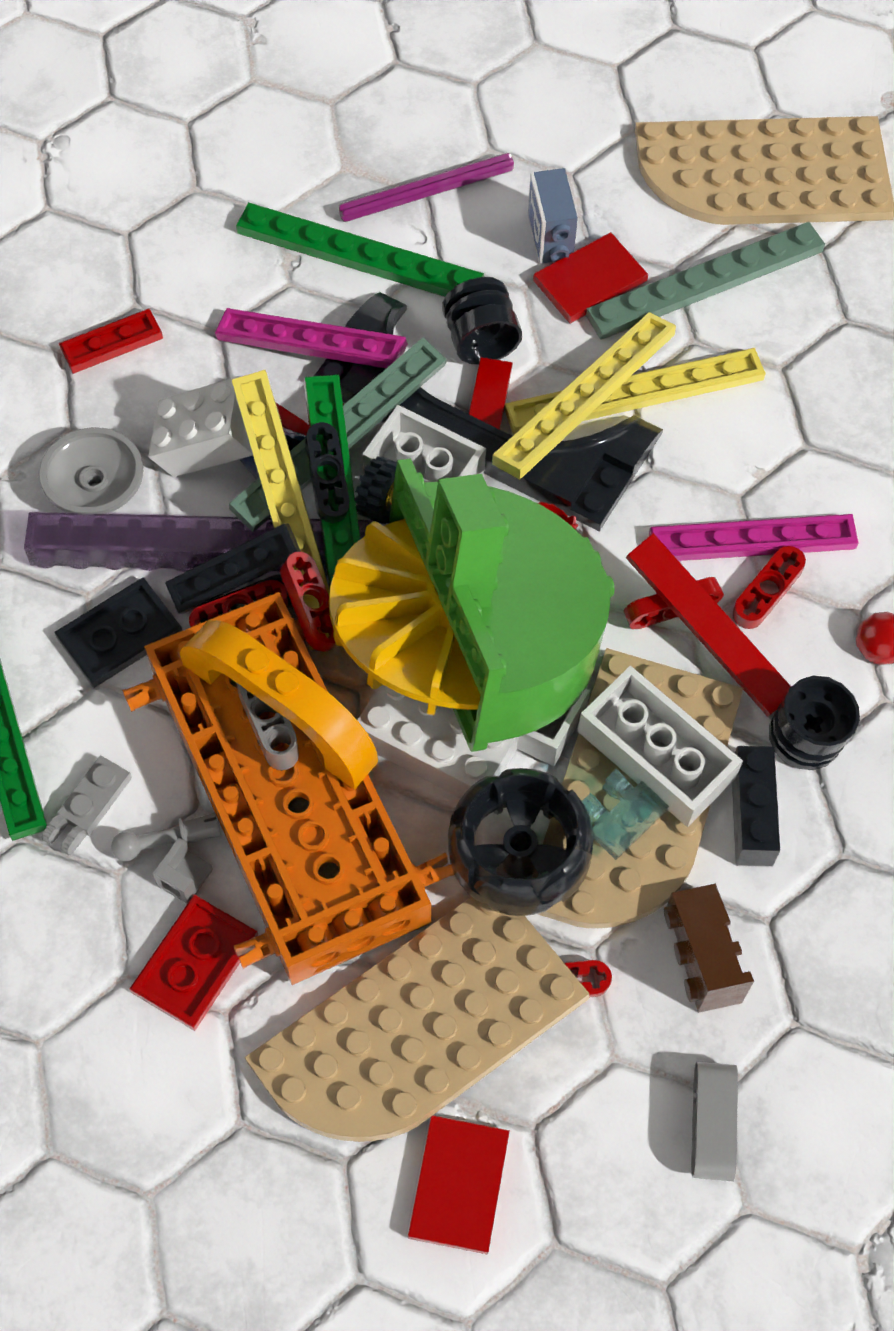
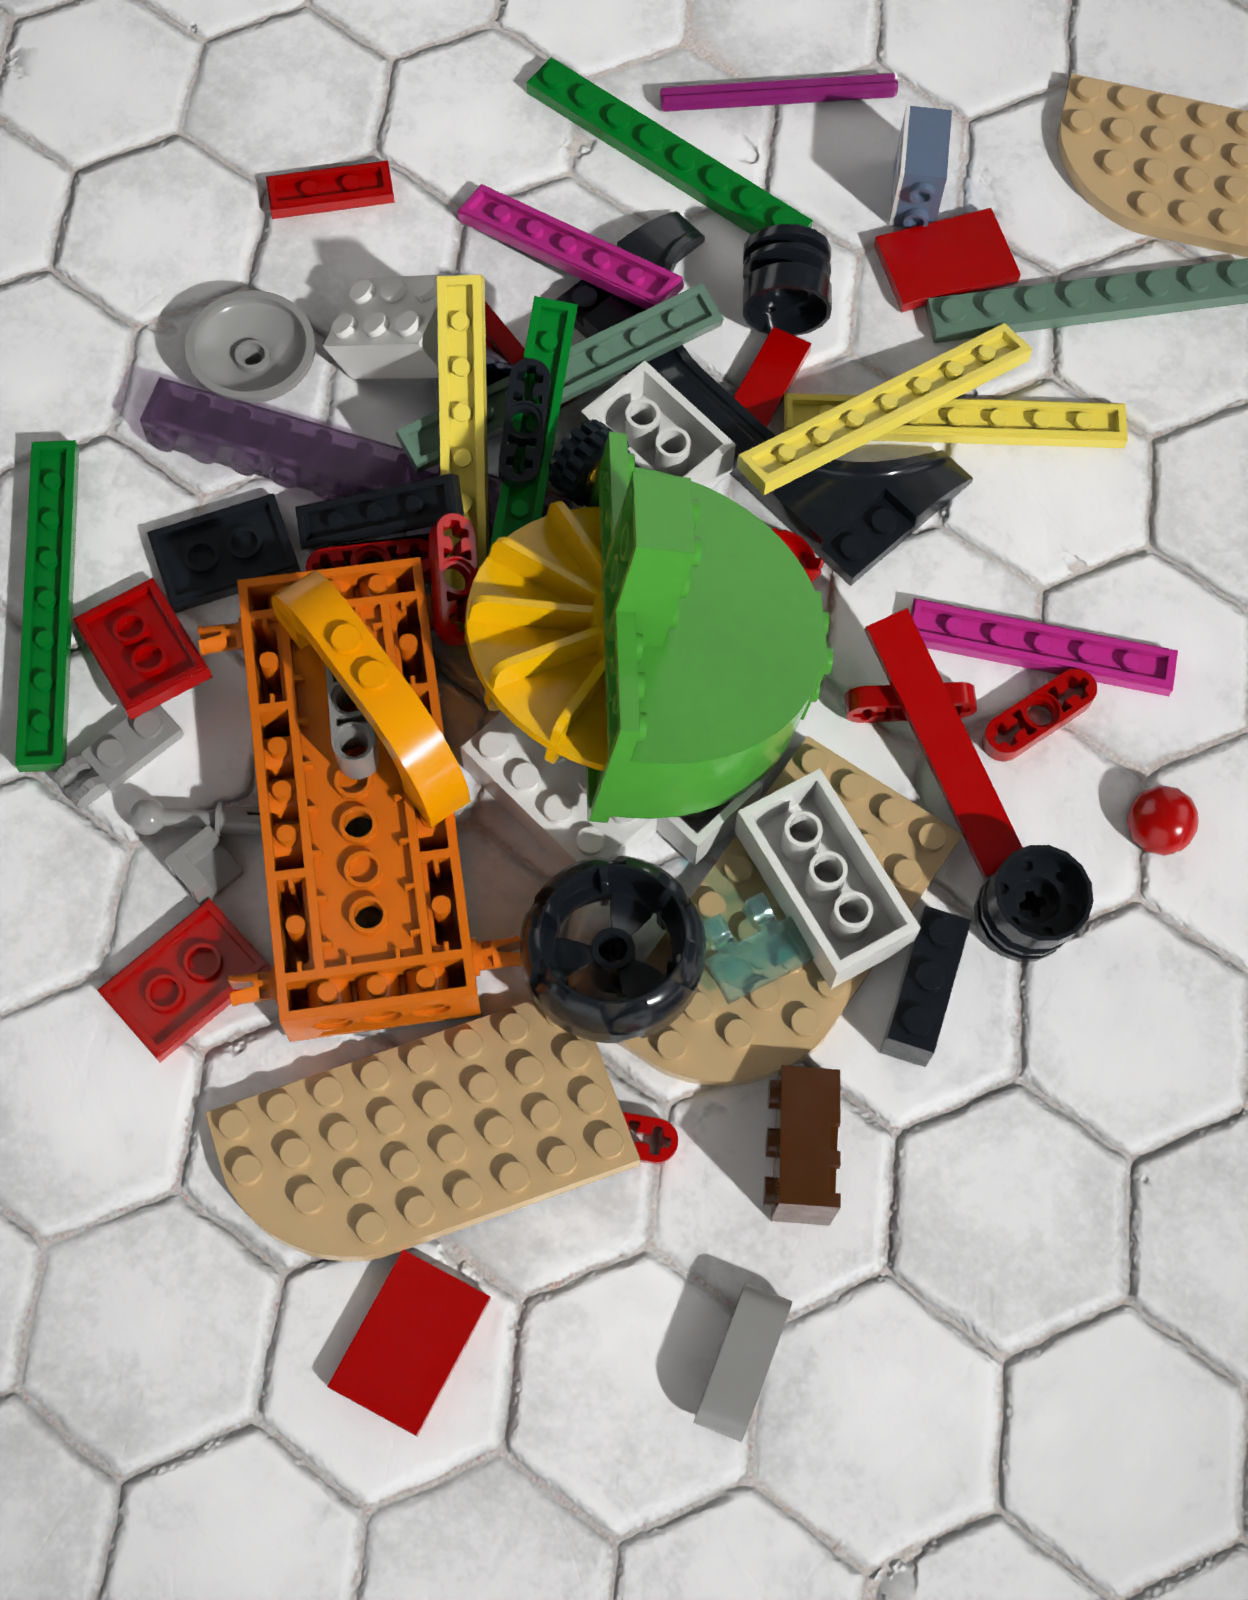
camera: 15 degrees right, 5 degrees up
(80, 720) = (142, 648): none -> red tile

